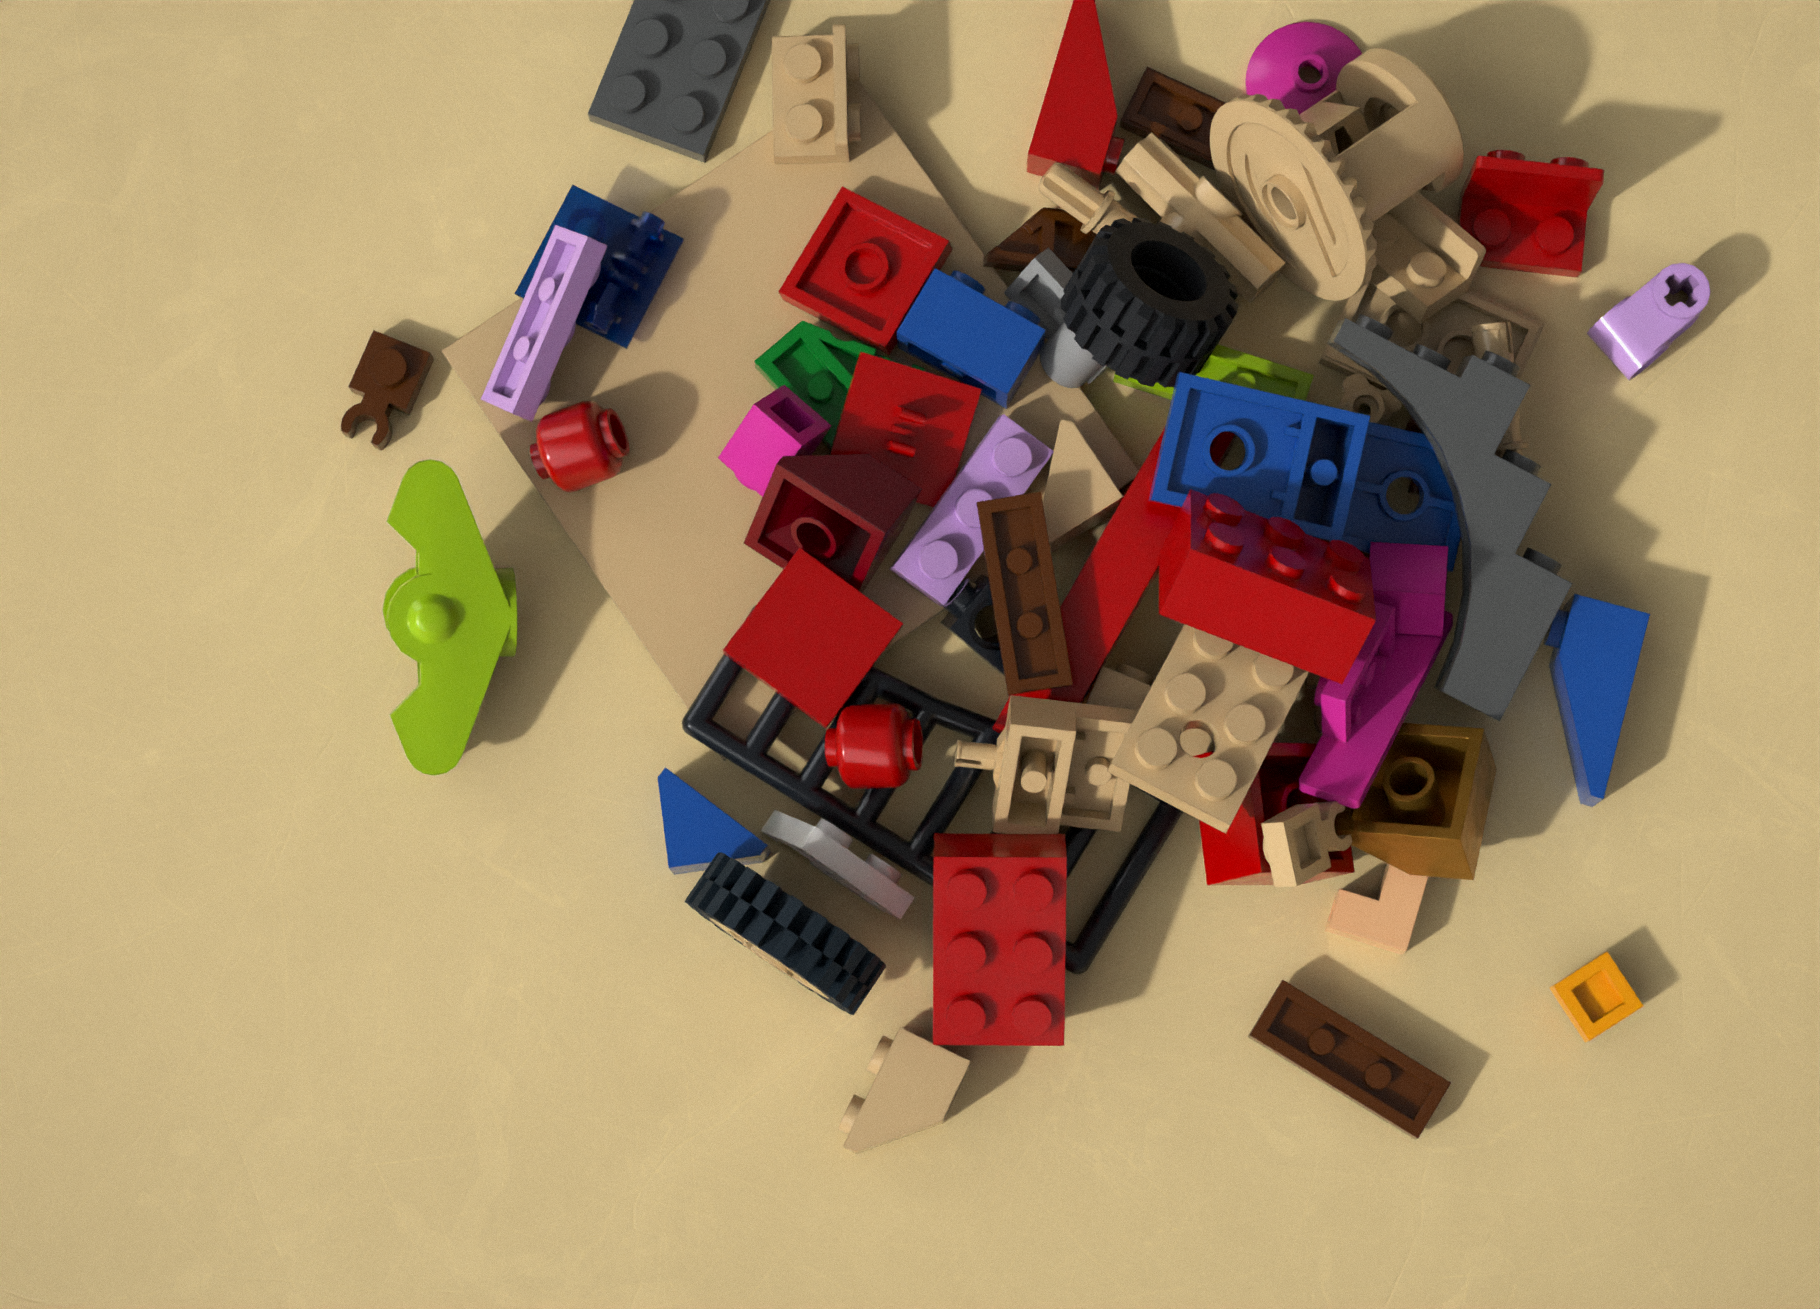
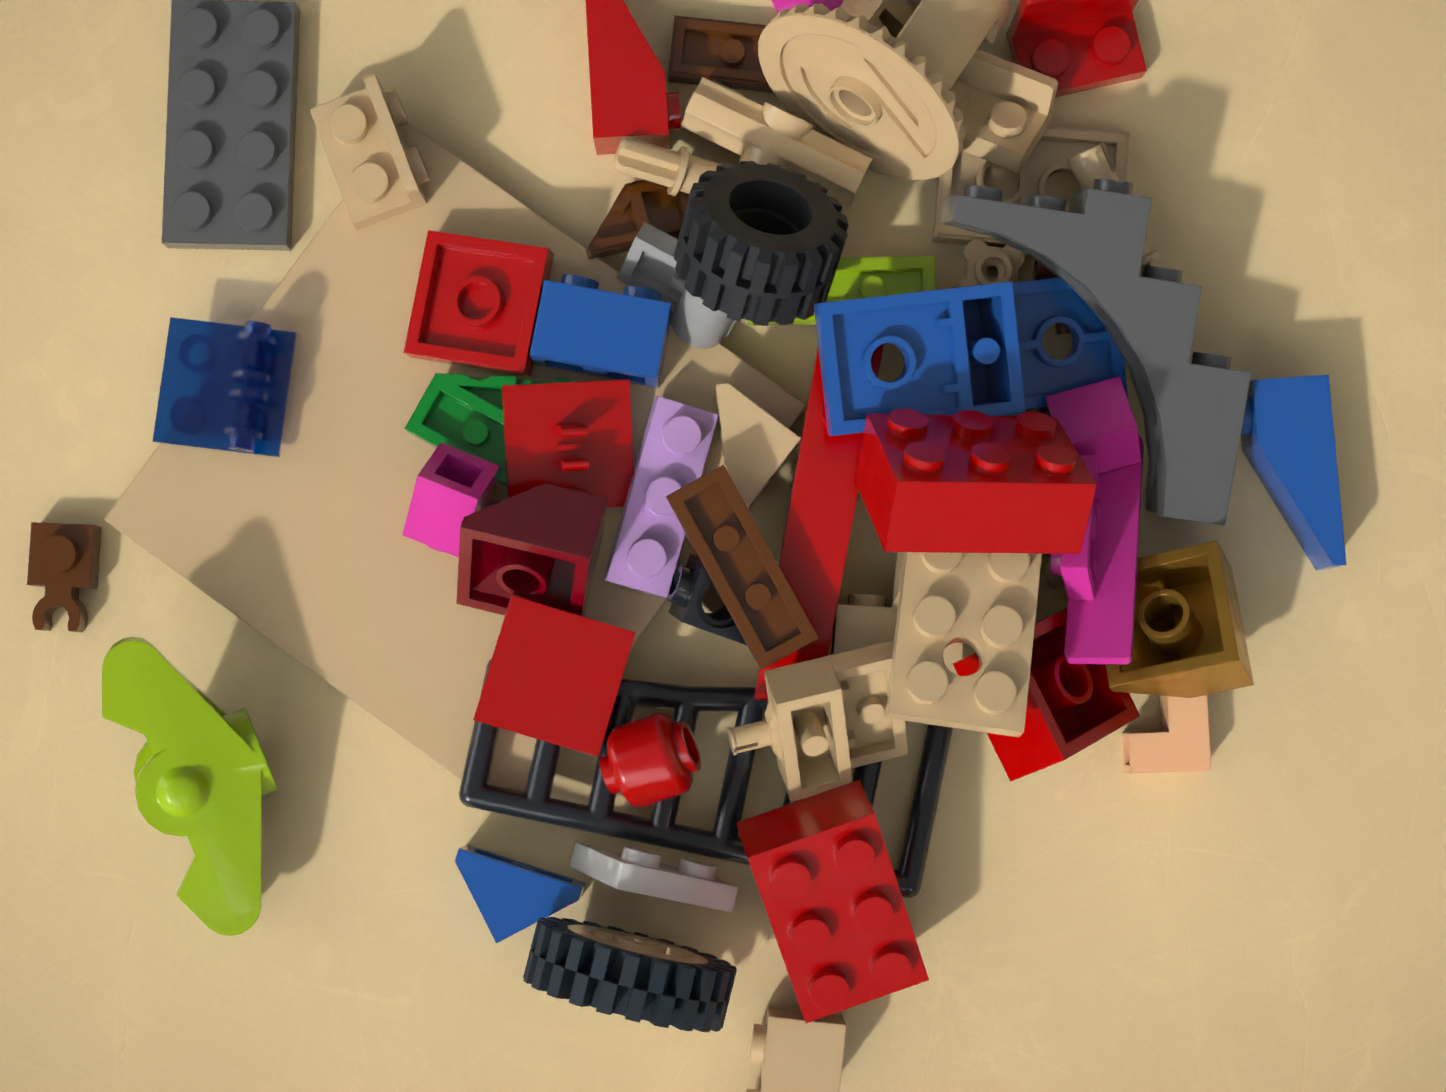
camera: 25 degrees left, 5 degrees up
(544, 322) = (189, 462): lavender plate -> none
(579, 446) = (266, 568): red head -> none
(1299, 842) = (1089, 717): tan plate -> none
(1349, 1059) = (1192, 889): reddish brown plate -> none
(1596, 996) = (1397, 748): light orange plate -> none
(1645, 324) = (1227, 98): lavender piece -> none

